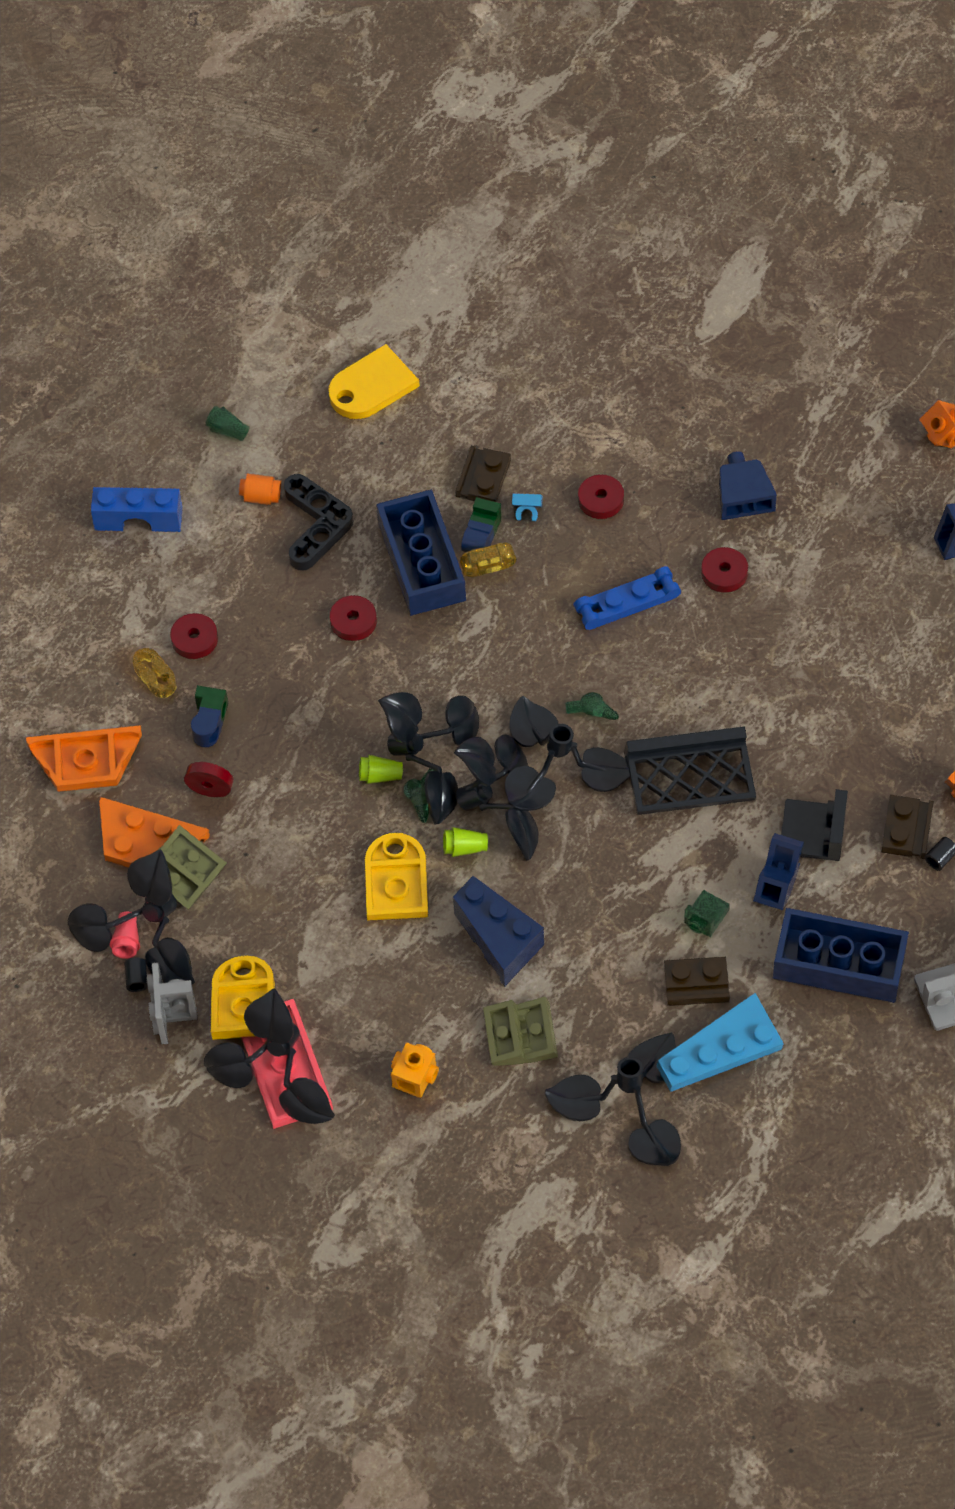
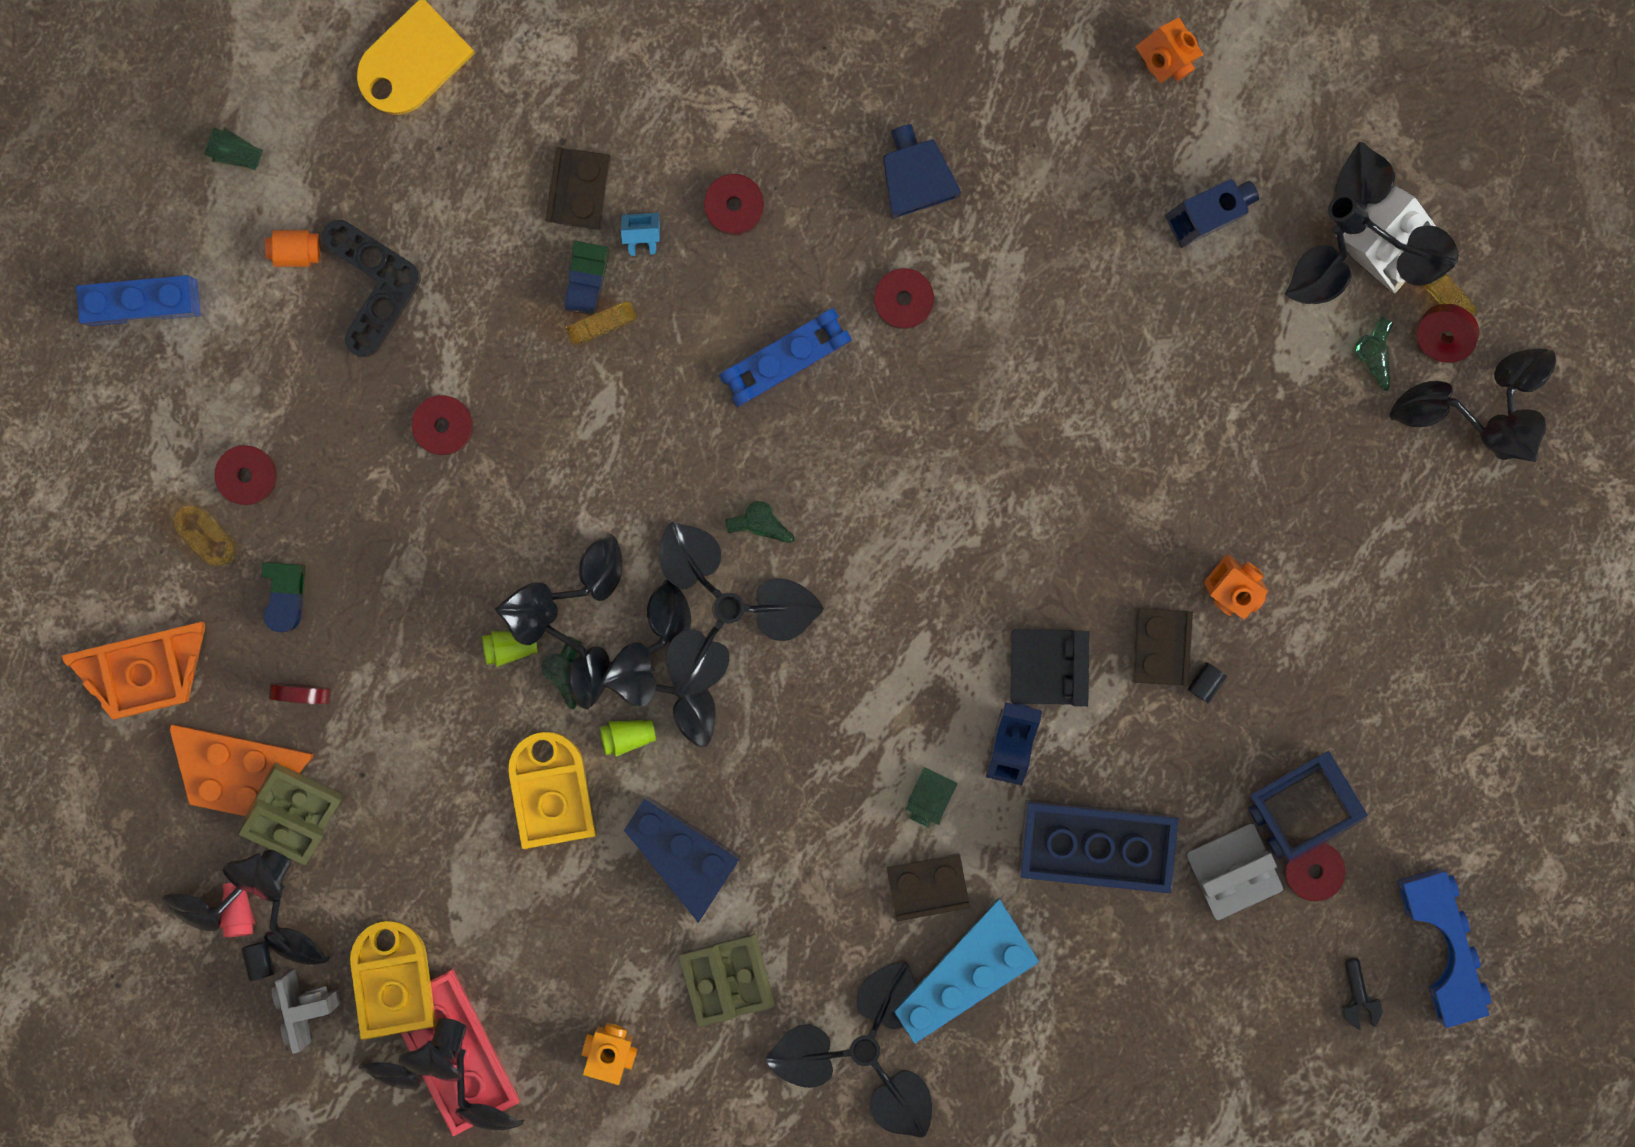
camera: 10 degrees left, 30 degrees up
(421, 552) = (514, 328): dark blue brick -> none
(679, 748) = (885, 574): black fence -> none

